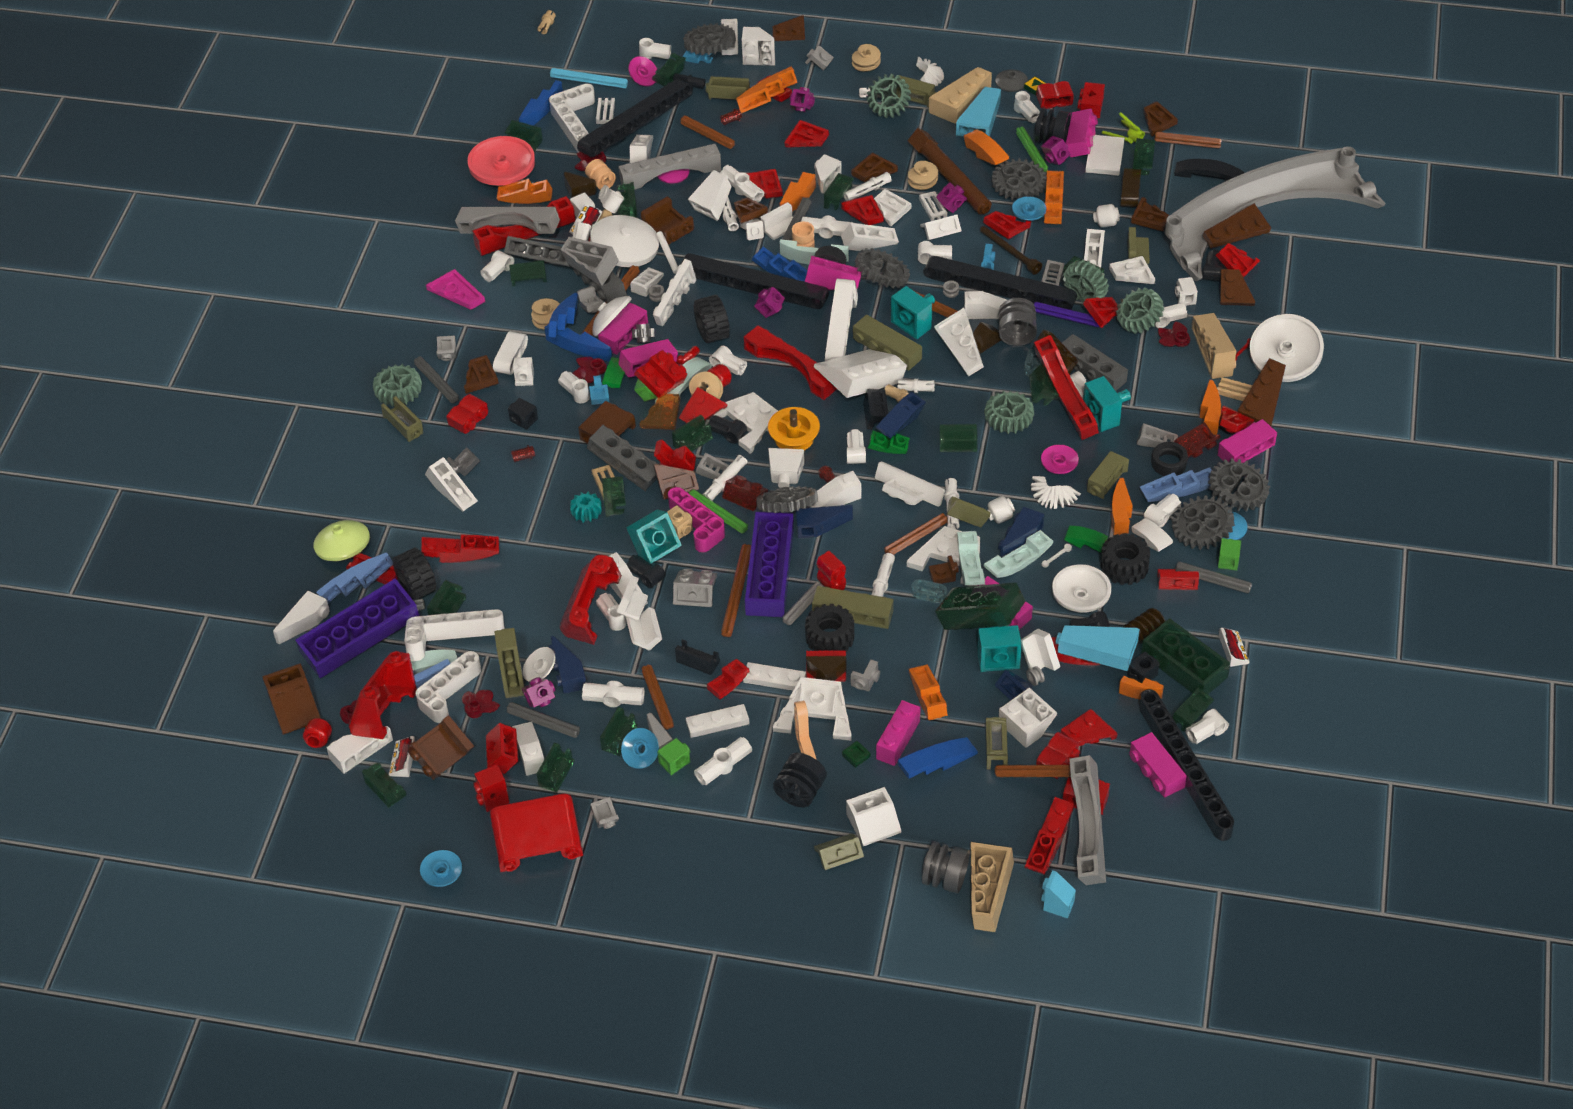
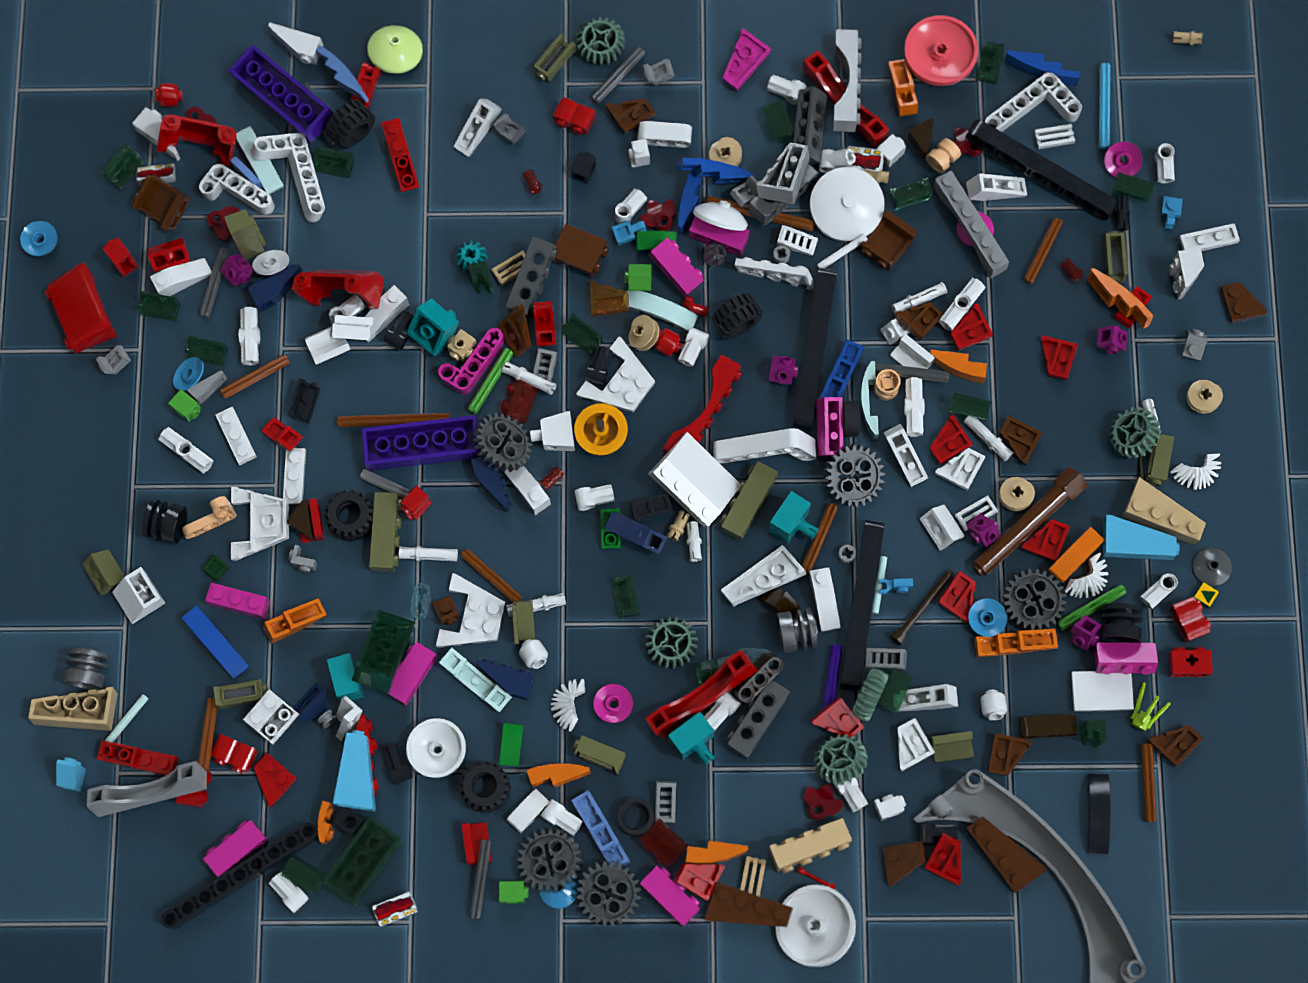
camera: 80 degrees right, 25 degrees up
(291, 698) = (200, 62): reddish brown slope -> none
(610, 199) = (904, 175): white piece -> none
(661, 373) = (643, 284): red plate -> none
(694, 588) = (390, 379): light grey bracket -> none
(701, 404) = (617, 335): red wing -> none
(709, 39) = (1187, 217): dark grey gear -> none
(711, 195) = (929, 276): white slope -> none
(826, 170) = (1000, 389): white slope -> none
(907, 486) = (546, 556): white bracket -> none
(927, 249) = (896, 522): white piece -> none
(969, 164) = (1048, 541): none -> red wing
(969, 558) = (451, 634): light aqua slope -> none
(997, 842) = (127, 718): none -> light aqua bar
(1010, 146) = (1091, 581): none -> white hair
(1067, 548) = (475, 709): white hinge -> none
(1147, 623) = (399, 815): dark brown piece -> none

